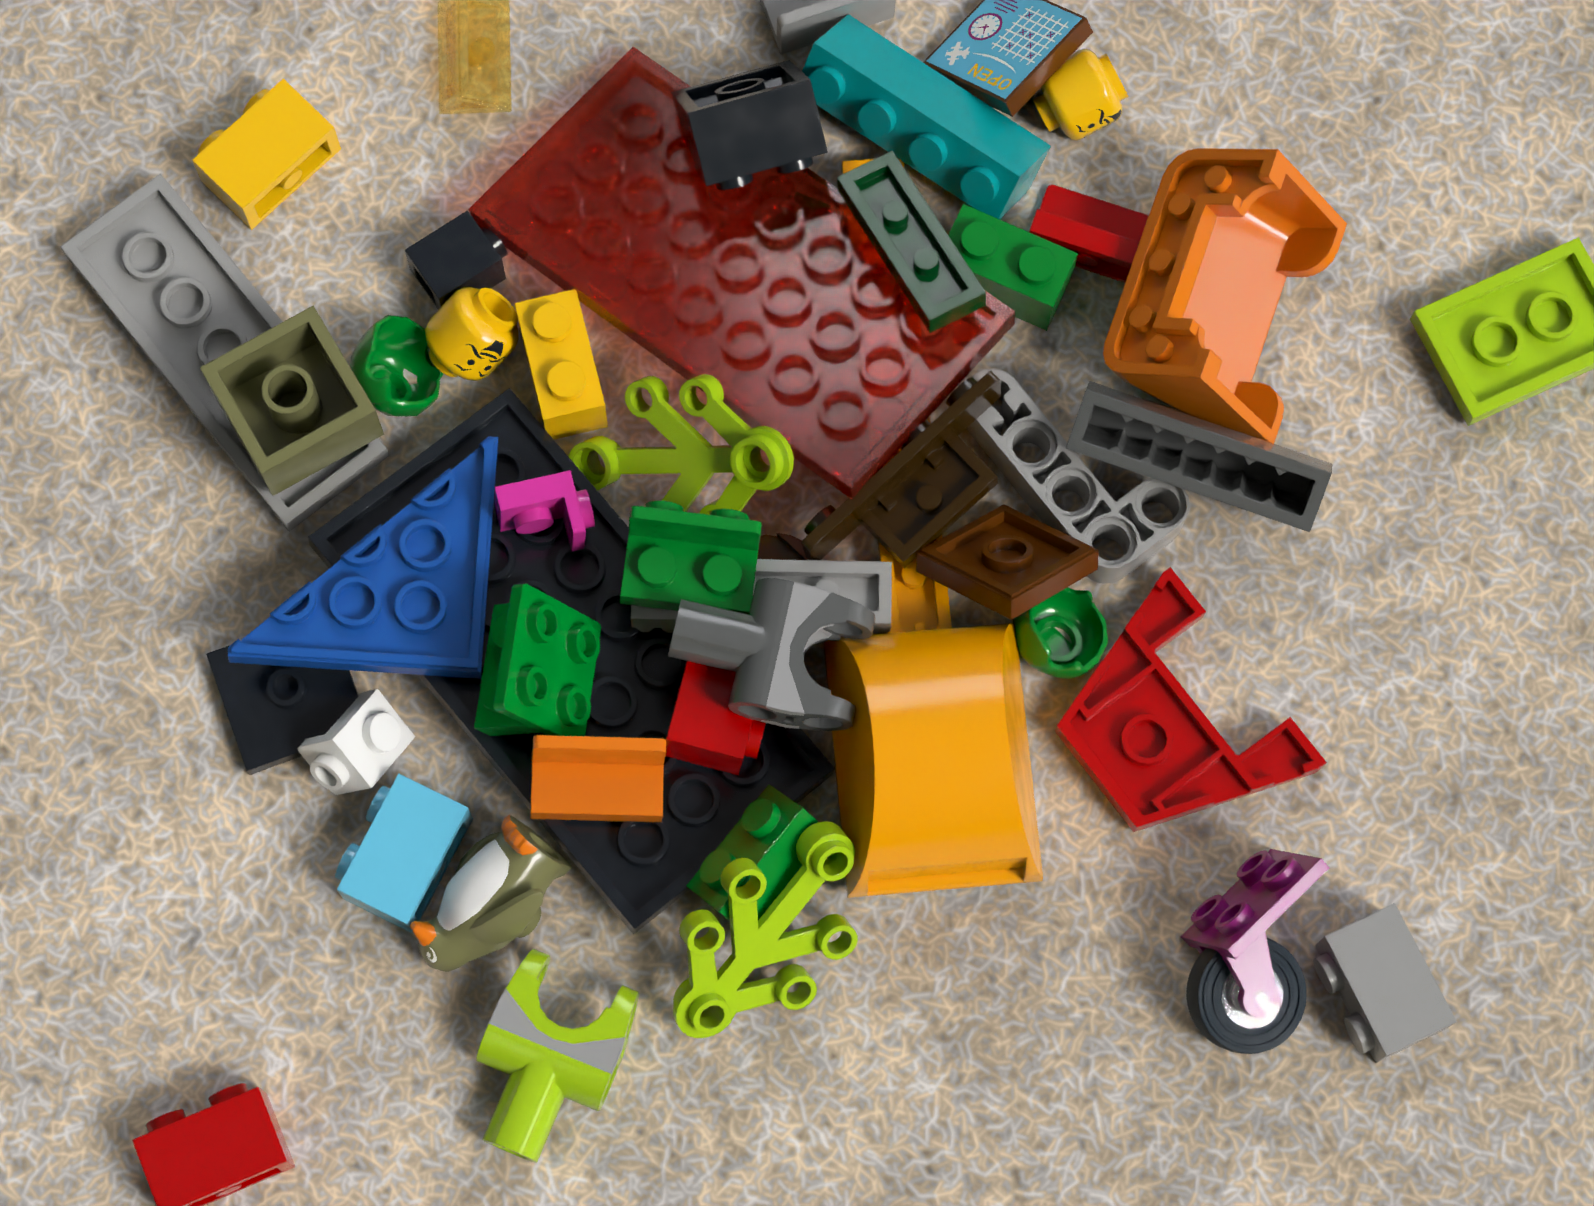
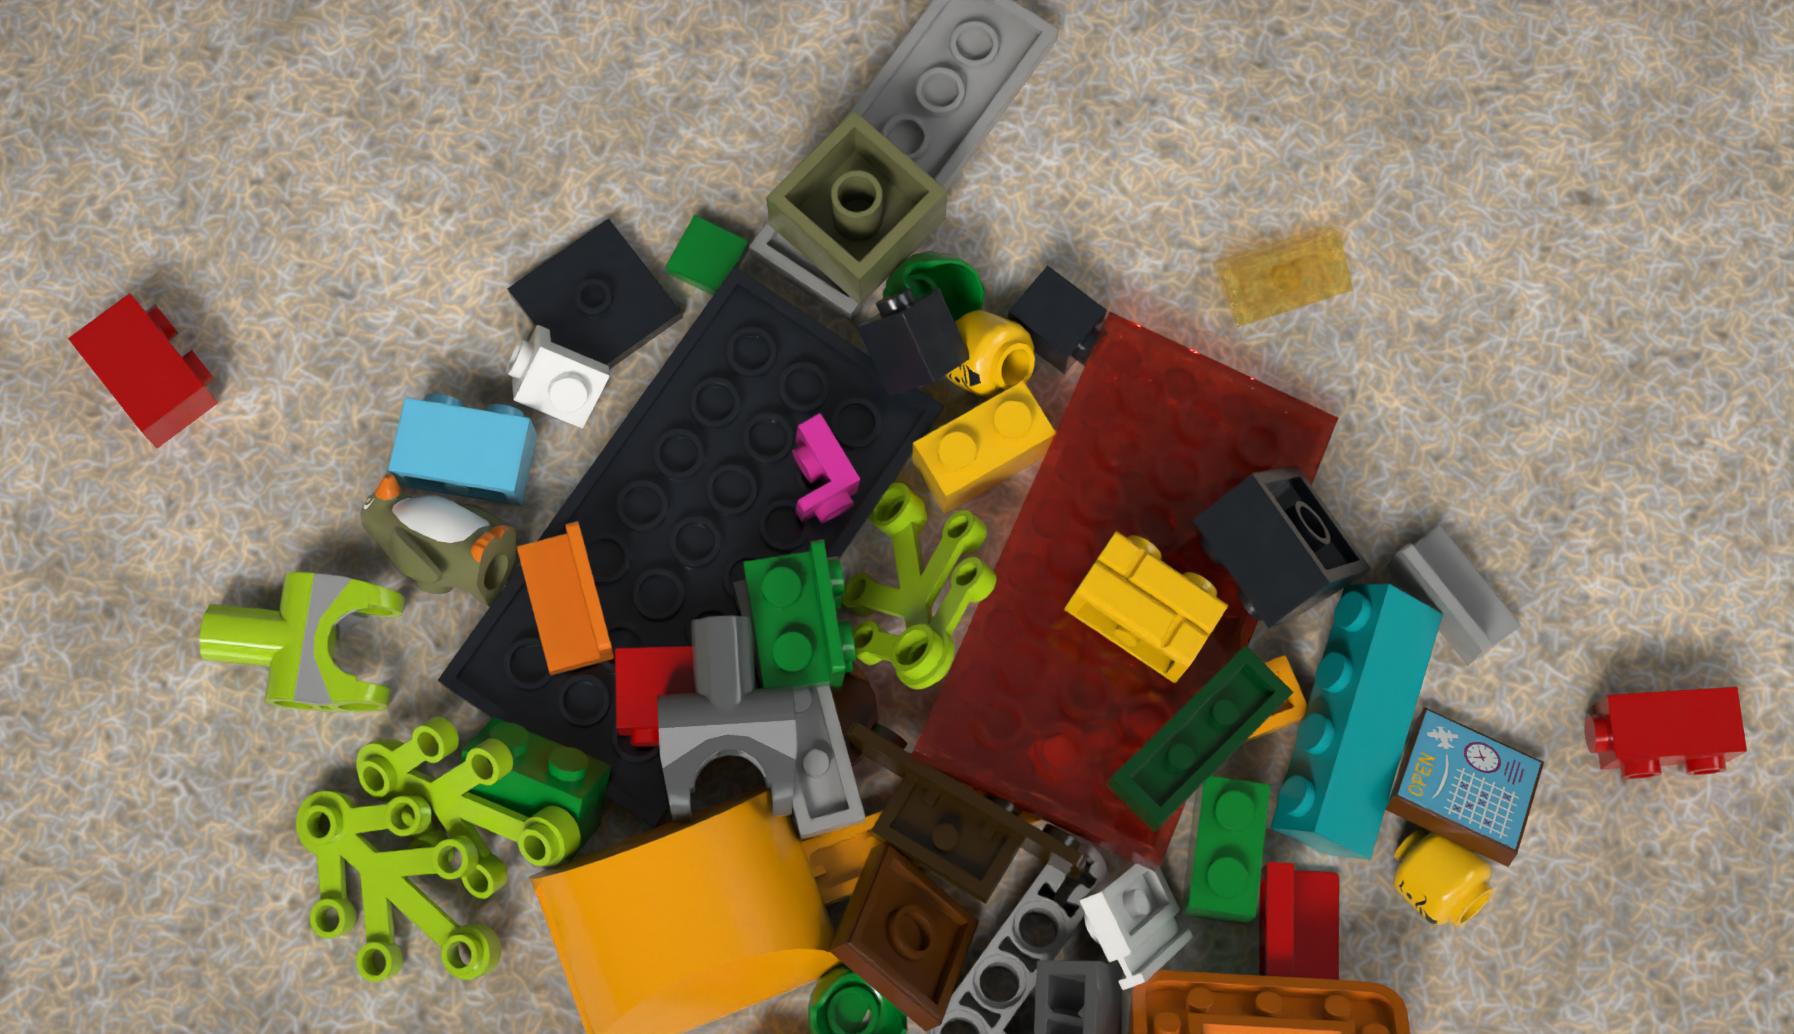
camera: 75 degrees right, 0 degrees up
(266, 153) = (1110, 115): yellow brick -> none
(276, 569) = (706, 255): none -> green tile
(402, 594) = (704, 370): blue tile -> none
(445, 387) = (913, 340): none -> black brick
(537, 667) = (658, 515): green bracket -> none
(775, 249) = (1147, 605): none -> yellow brick
(809, 1032) = (386, 882): none -> lime plant
(1051, 361) = (1135, 921): none -> white plate

